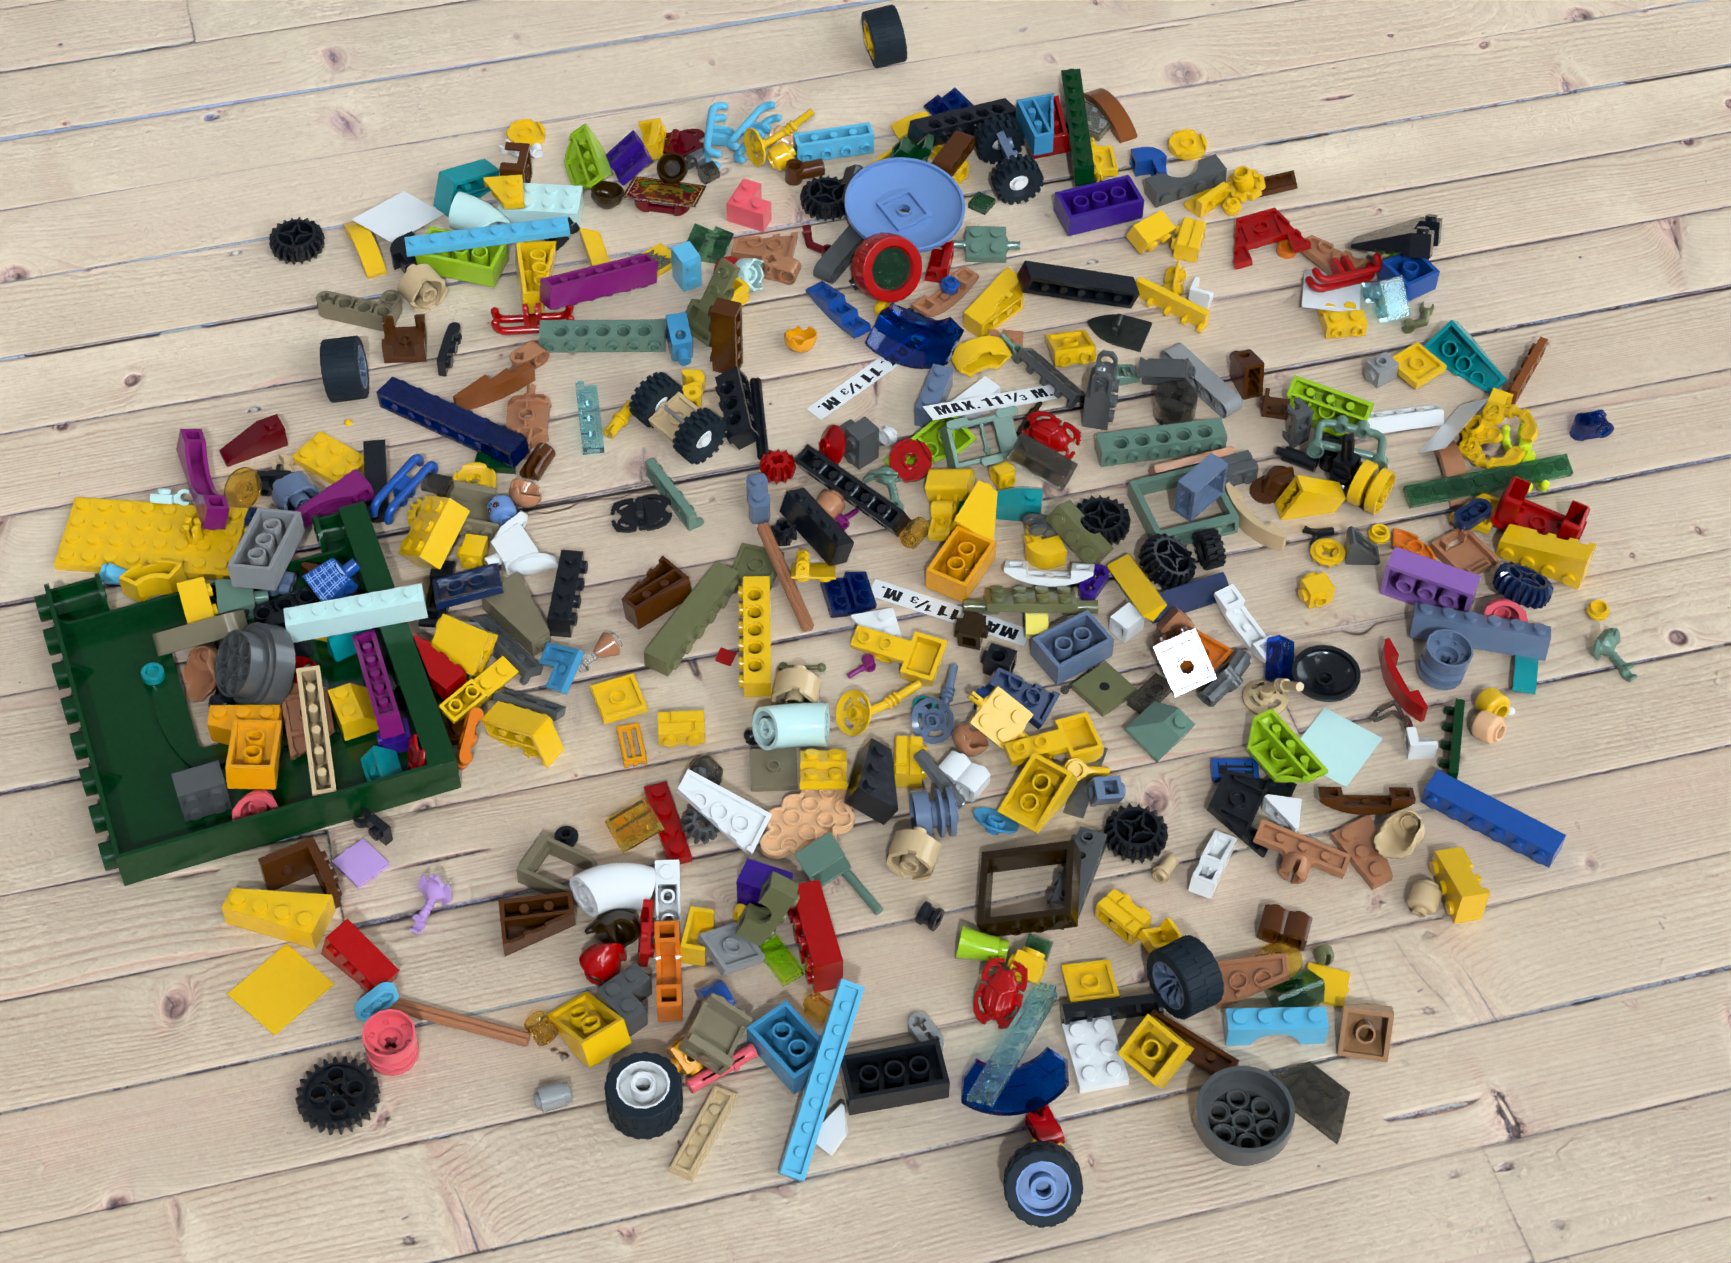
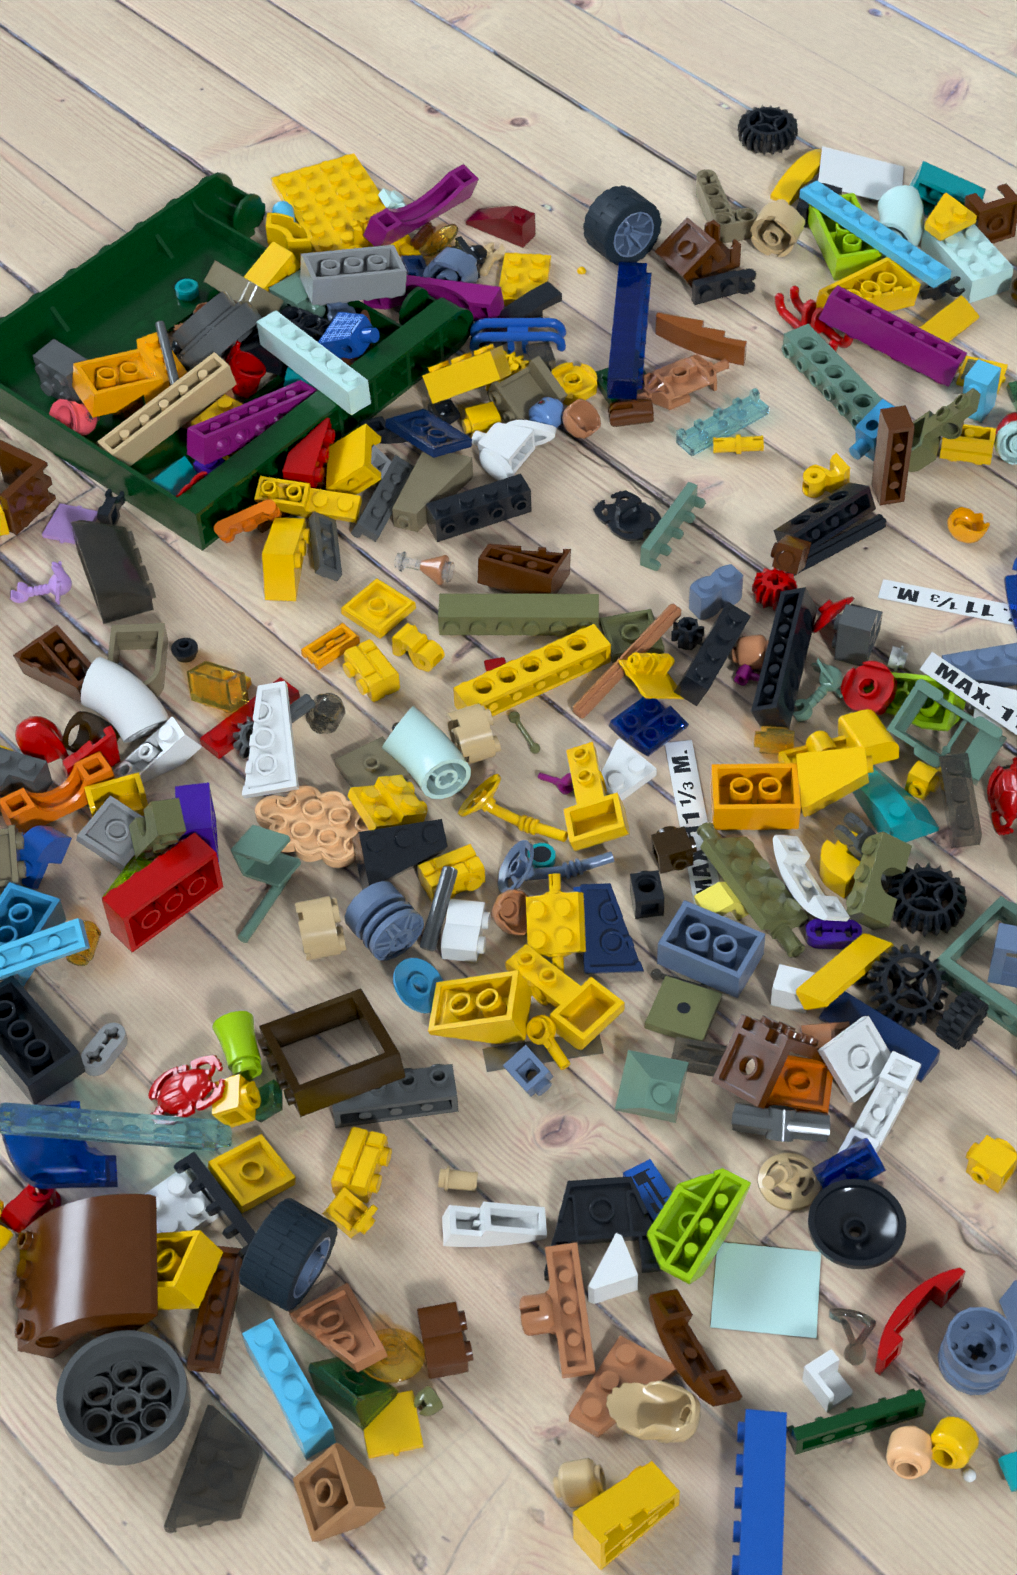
camera: 65 degrees right, 0 degrees up
(232, 500) = (423, 236): none -> reddish brown axle
(255, 706) = (167, 352): none -> dark grey bar
(404, 346) = (688, 249): none -> reddish brown panel
(447, 850) = (113, 570): none -> clear smoke windscreen
(529, 352) = (761, 342): nougat piece -> none
(564, 663) = (390, 544): dark azure plate -> none
(663, 406) = (756, 494): black plate -> none
(687, 688) = (423, 652): none -> yellow leg
(765, 438) = (790, 554): none -> reddish brown brick
(929, 916) = (256, 983): black wheel -> none
(1133, 1101) = (87, 1272): none -> reddish brown slope
(1141, 833) = (506, 1127): black gear -> none
(1205, 614) = (856, 1058): none -> white plate

